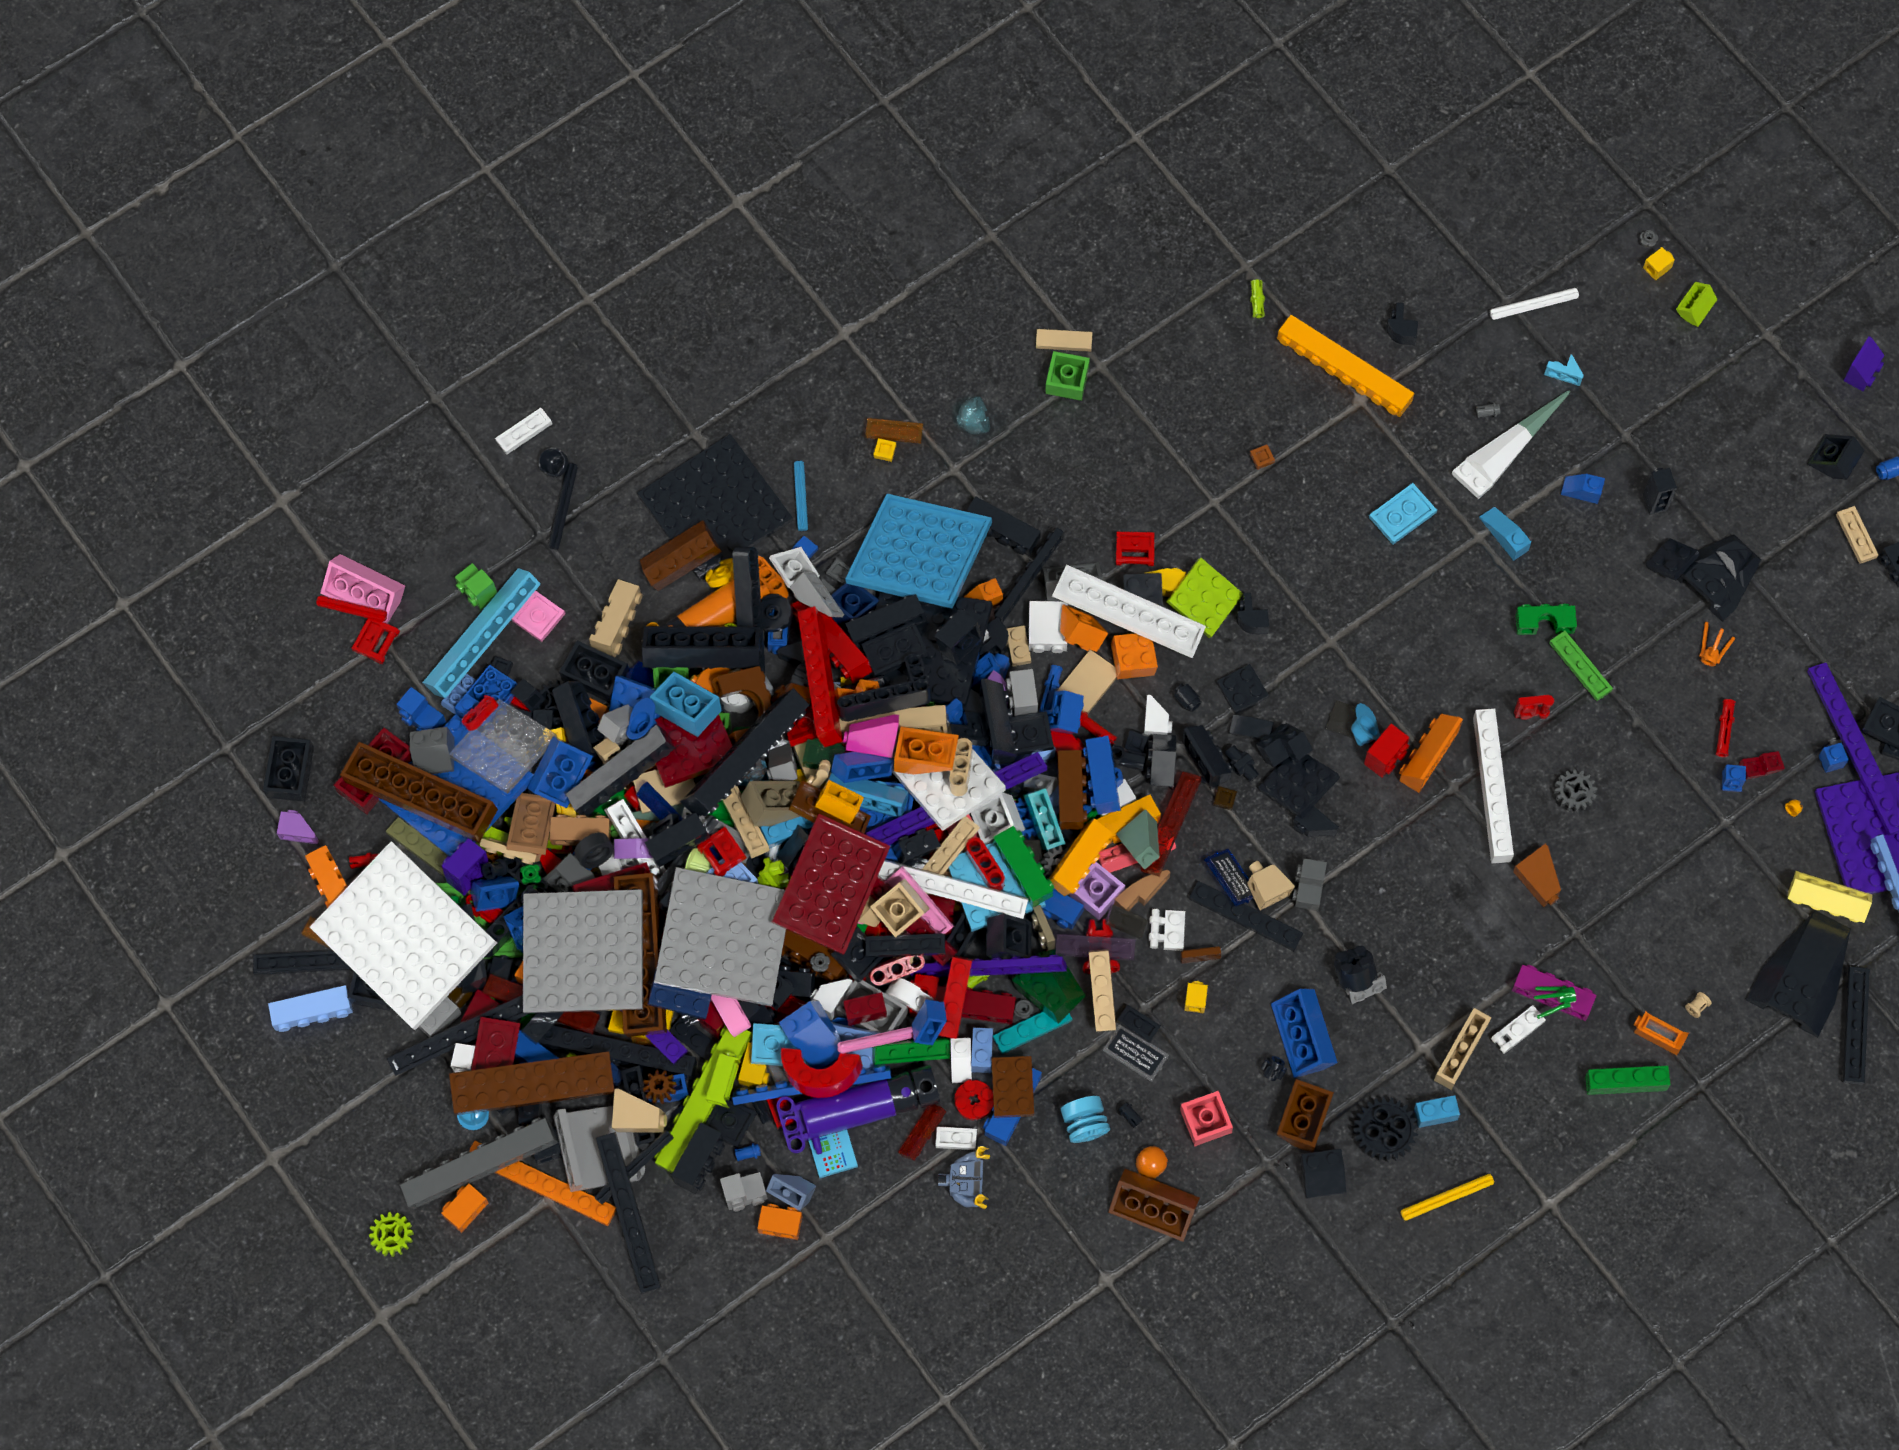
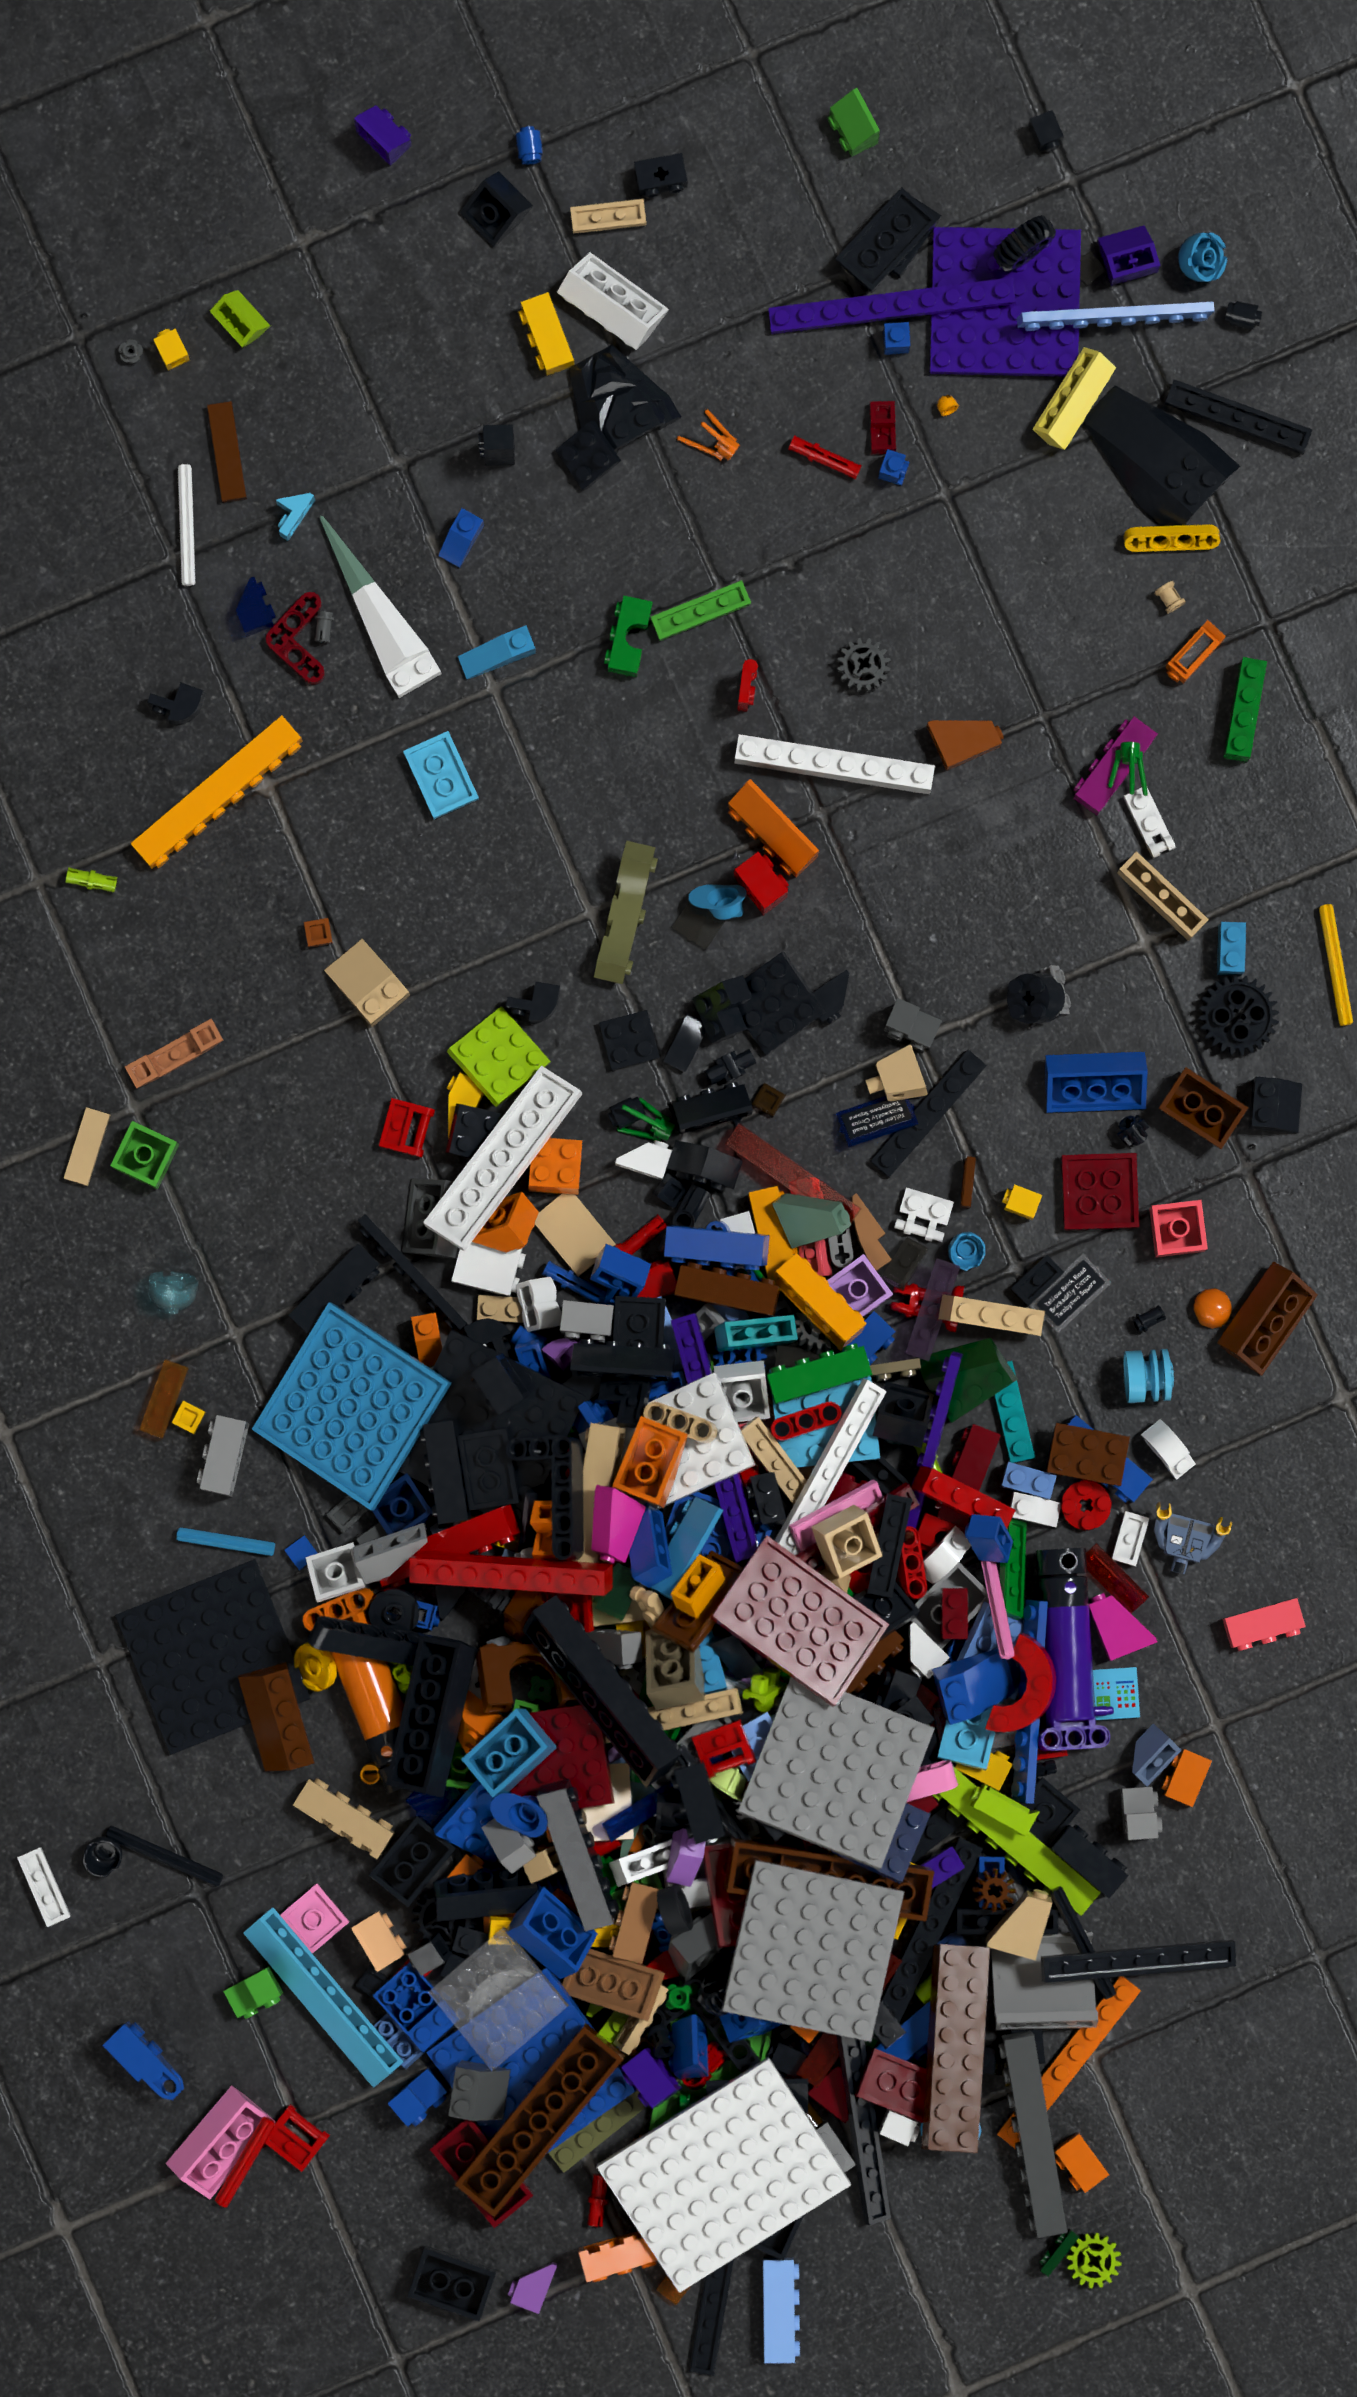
camera: 85 degrees left, 15 degrees up
(385, 1201) = (1051, 2259): none -> dark green plate
(412, 520) = (143, 2059): none -> blue brick
(480, 713) = (442, 2016): red piece -> none
(530, 660) = (379, 1940): none -> light nougat slope
(748, 1152) = (1089, 1798): blue pin -> none
(820, 967) = (890, 1655): dark grey plate -> none
(861, 475) = (223, 1455): none -> light grey brick
(884, 1143) = (1118, 1627): none -> dark pink slope
(913, 1255) = (1264, 1624): none -> coral brick
(1023, 1004) = (991, 1417): dark grey plate -> none
(1032, 1150) = (1168, 1448): none -> white brick
(1033, 660) = (539, 1304): none -> white brick
(1127, 869) = (847, 1249): none -> light grey beam
(1145, 381) = (174, 1054): none -> nougat slope
(1147, 964) = (966, 1250): none -> dark azure hair
(1183, 722) = (661, 1128): none -> green plant
(1220, 1055) = (1100, 1191): none -> dark red plate
(1233, 499) = (367, 982): none -> tan slope
(1337, 662) = (625, 912): none -> olive brick
(1469, 390) = (290, 644): none -> dark red beam
(1486, 359) = (253, 611): none -> clear blue slope
(1596, 318) = (227, 451): none -> reddish brown tile
(1742, 996) = (1172, 534): none -> yellow beam
(1754, 511) = (546, 334): none -> yellow brick
(1794, 551) = (612, 300): none -> white slope

